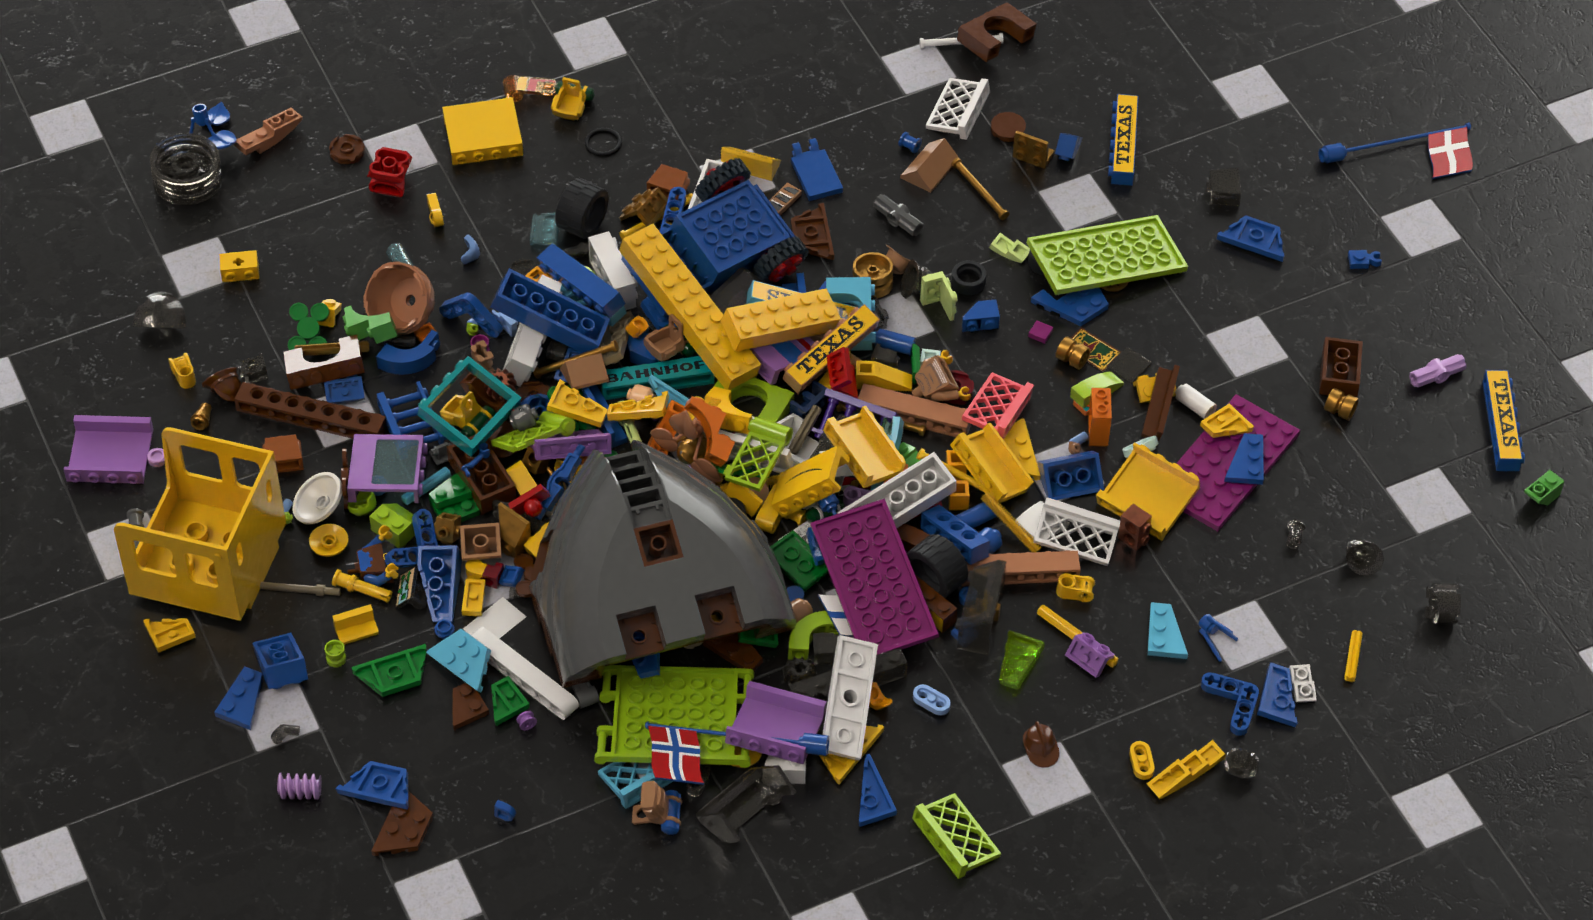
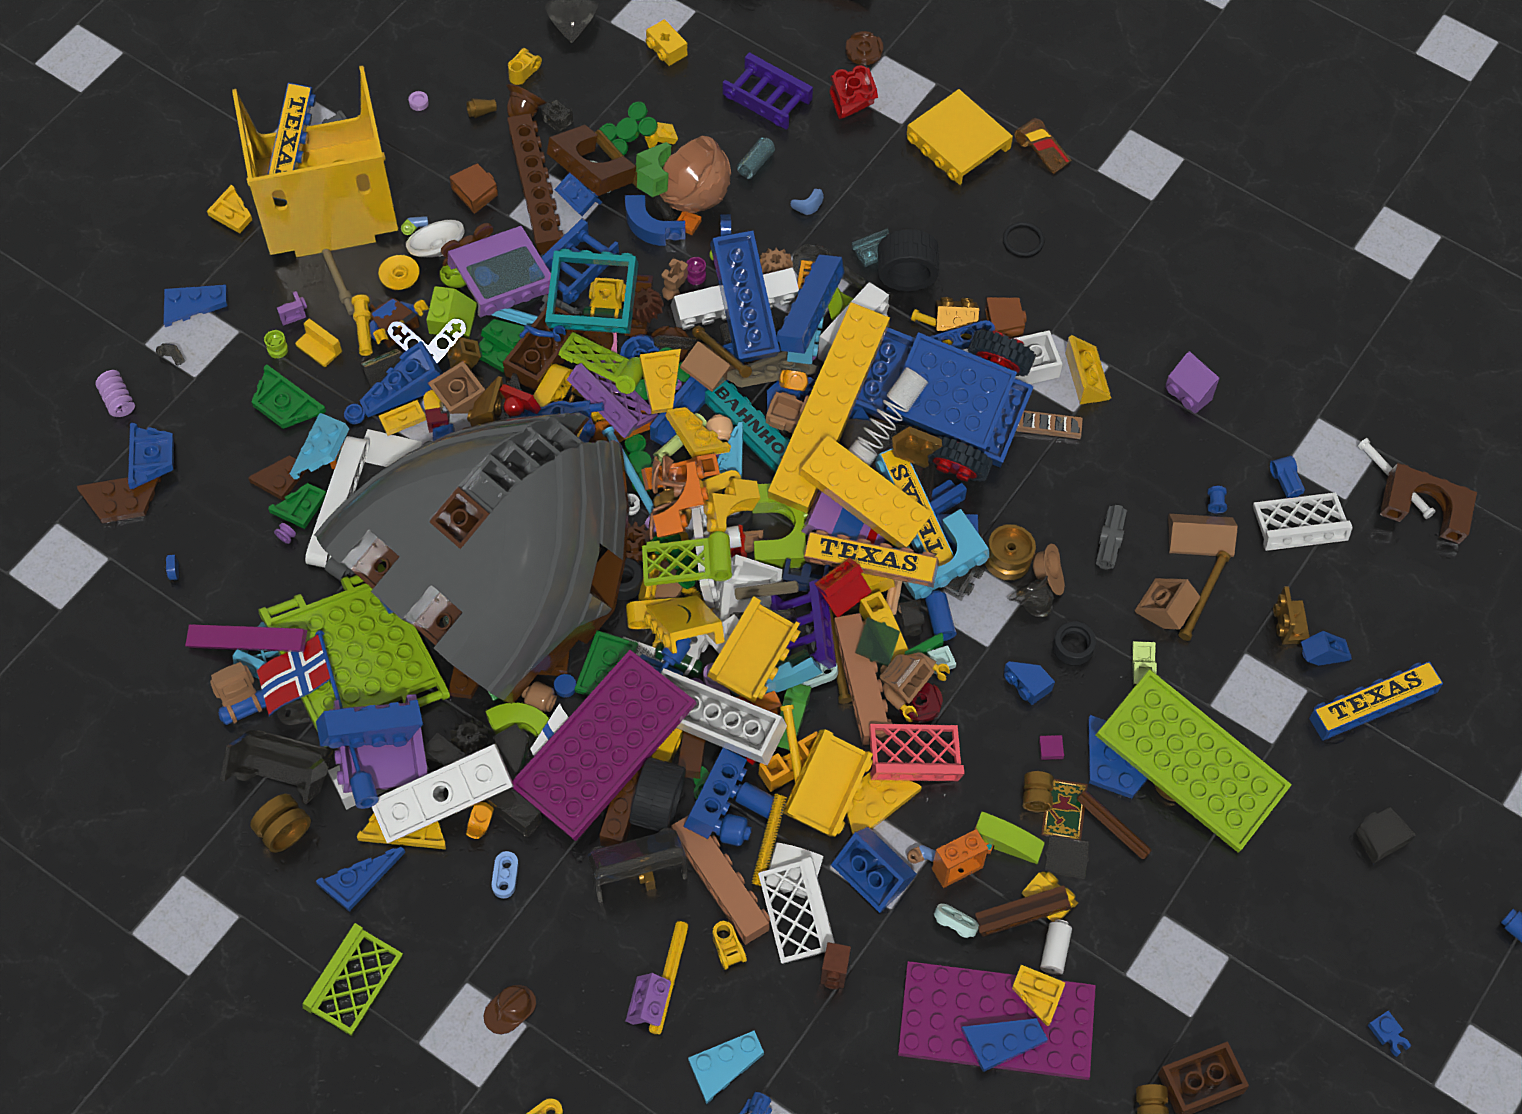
camera: 60 degrees right, 10 degrees up
(109, 449) = (403, 65): medium lavender panel -> none
(129, 511) = (291, 133): none -> brick
(280, 661) = (244, 307): blue slope -> none
(309, 627) = (292, 311): none -> medium lavender bracket
(336, 212) = (774, 76): none -> dark purple fence
(435, 211) = (835, 150): yellow piece -> none
(523, 417) = (614, 343): dark grey head -> none
(545, 383) = (675, 342): none -> clear smoke axle
(570, 99) = (1050, 183): yellow piece -> none
(615, 778) = (246, 638): none -> magenta tile
(723, 249) = (904, 394): none -> white piece
(761, 270) = (915, 446): none -> pearl gold bracket
(767, 710) = (369, 725): none -> blue wedge
(798, 820) = (280, 823): none -> pearl gold wheel
(808, 104) = (1192, 383): none -> medium lavender slope
(814, 232) = (1033, 472): reddish brown wing -> none
(815, 171) = (1116, 435): blue tile -> none
(896, 382) = (877, 642): none -> clear green piece
(913, 94) = (1286, 472): none -> blue piece
(938, 288) = (1029, 616): yellowish green bracket -> none
(973, 210) = (1168, 602): none -> medium nougat slope
(1006, 124) = (1311, 580): reddish brown tile -> none
(1019, 658) = (606, 934): clear neon green wing -> none
(1121, 326) = (1114, 824): none -> reddish brown axle
(1151, 485) = (894, 958): yellow panel -> none
(1255, 237) = (1335, 900): blue wing -> none

